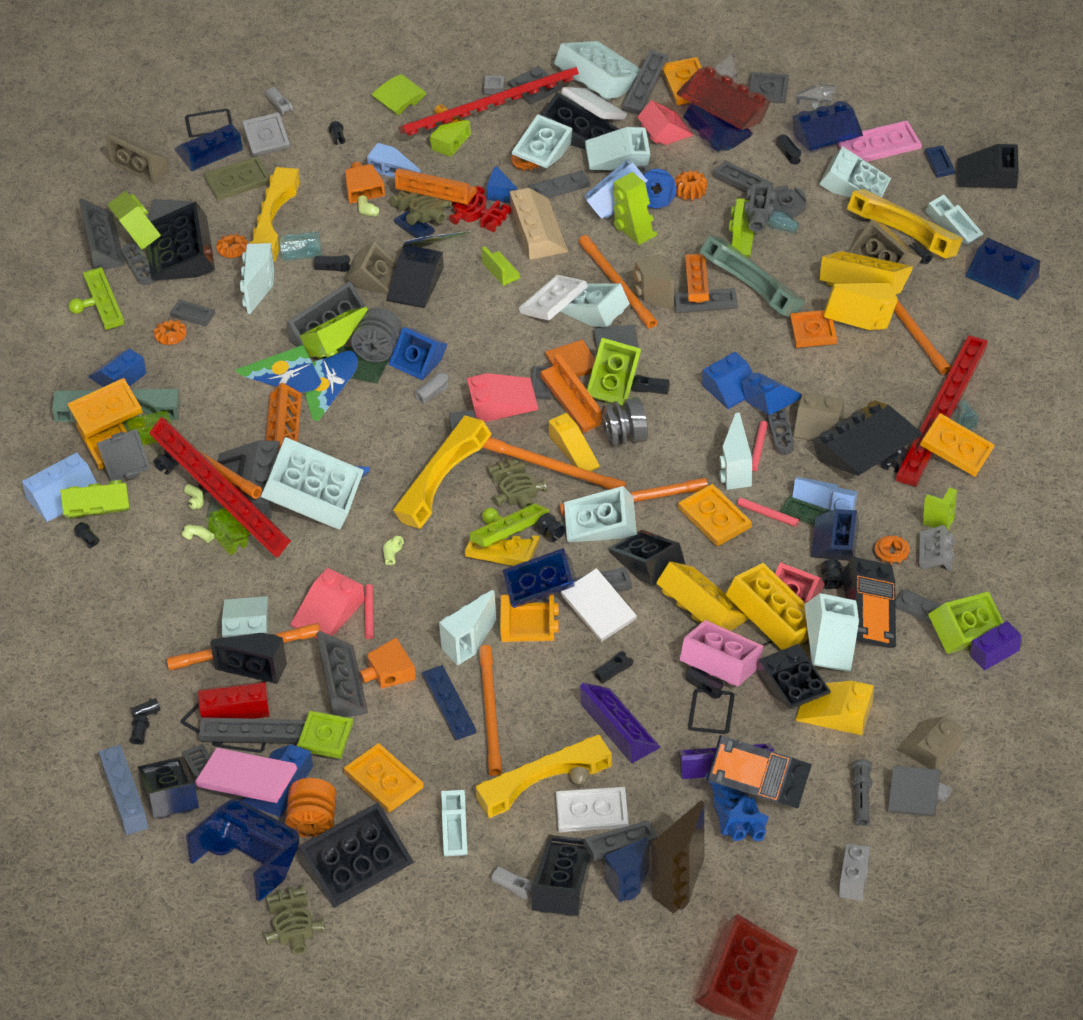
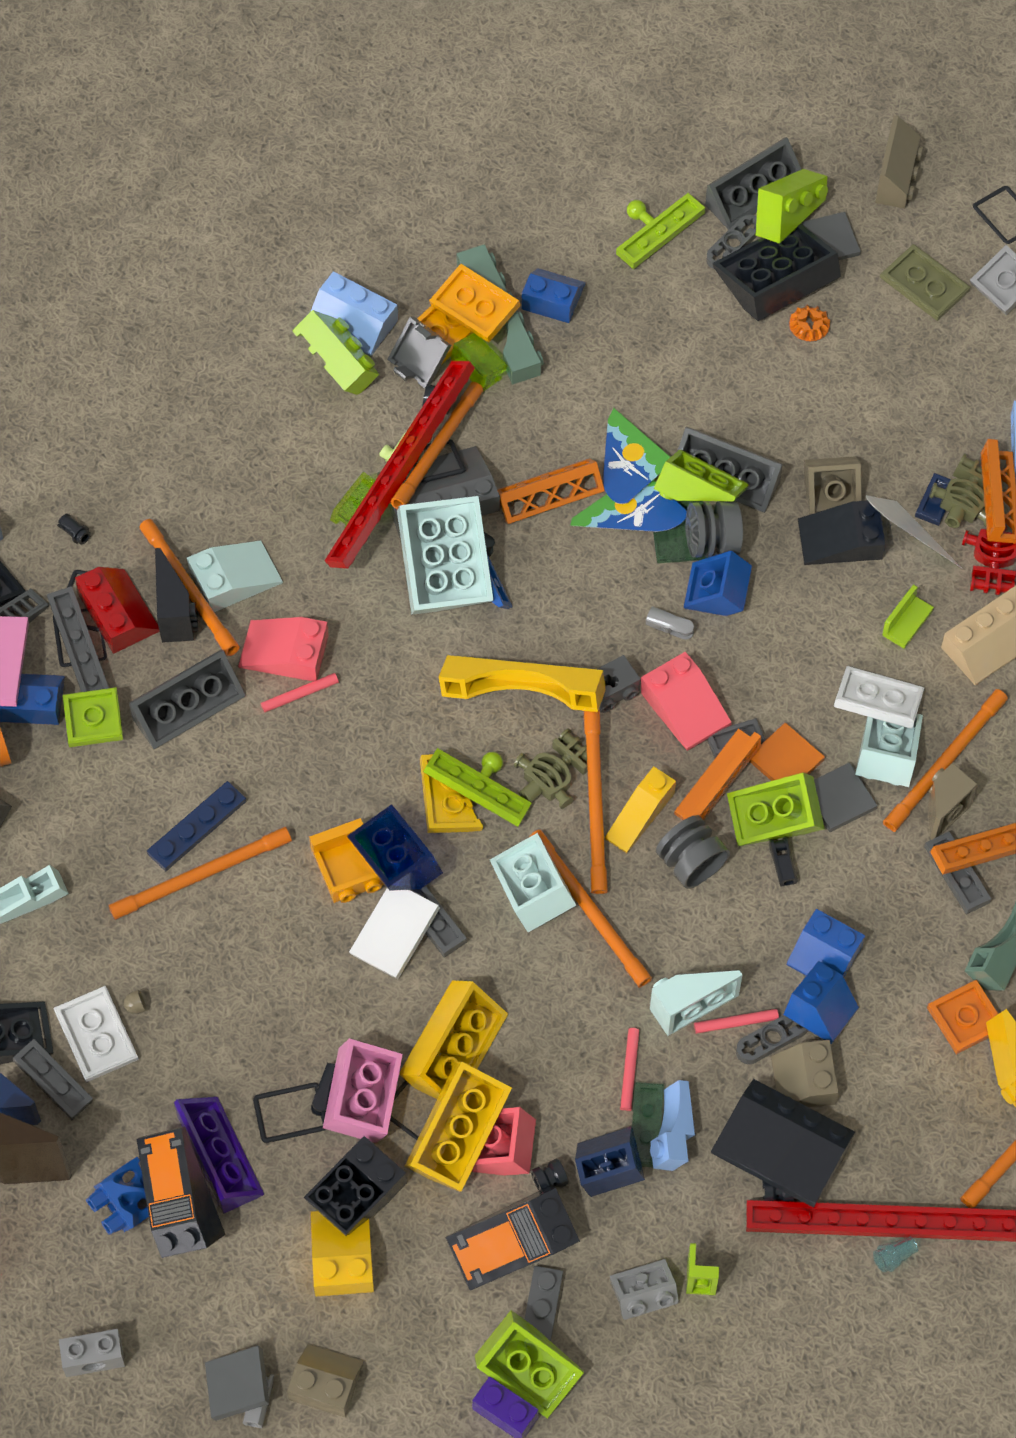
camera: 65 degrees right, 15 degrees up
(83, 531) = (297, 368): black pin -> none
(140, 725) = (43, 535): black pin -> none
(170, 337) = (650, 323): orange gear -> none
(192, 313) = (682, 328): dark grey tile -> none
(200, 531) = (348, 471): yellowish green arm -> none
(210, 147) = (958, 231): clear blue slope -> none
(257, 274) = (755, 366): light aqua slope -> none
(283, 186) = (927, 334): yellow arch -> none
(300, 246) = (840, 392): clear light blue bracket -> none
(335, 263) = (827, 436): black bar -> none
(363, 182) = (976, 414): orange torso -> none
(367, 208) = (939, 435): yellowish green arm -> none
(383, 777) = (61, 800): light orange plate -> none
(388, 665) = (221, 742): orange torso -> none
(391, 549) = (399, 677): yellowish green arm -> none
(467, 628) = (296, 803): light aqua slope -> none
(501, 792) = (78, 929): yellow arch -> none
(548, 525) = (499, 831): black wheel -> none
(611, 668) = (308, 978): black bar -> none
(617, 722) = (228, 1015): dark purple slope -> none
(647, 555) = (496, 955): black slope -> none
(714, 515) = (595, 1009): light orange plate -> none
(832, 631) = (437, 1206): light aqua slope -> none
(862, 784) = (233, 1320): dark grey pin -> none
(883, 547) = (630, 1224): orange gear -> none
(957, 445) = (828, 1258): light orange plate -> none

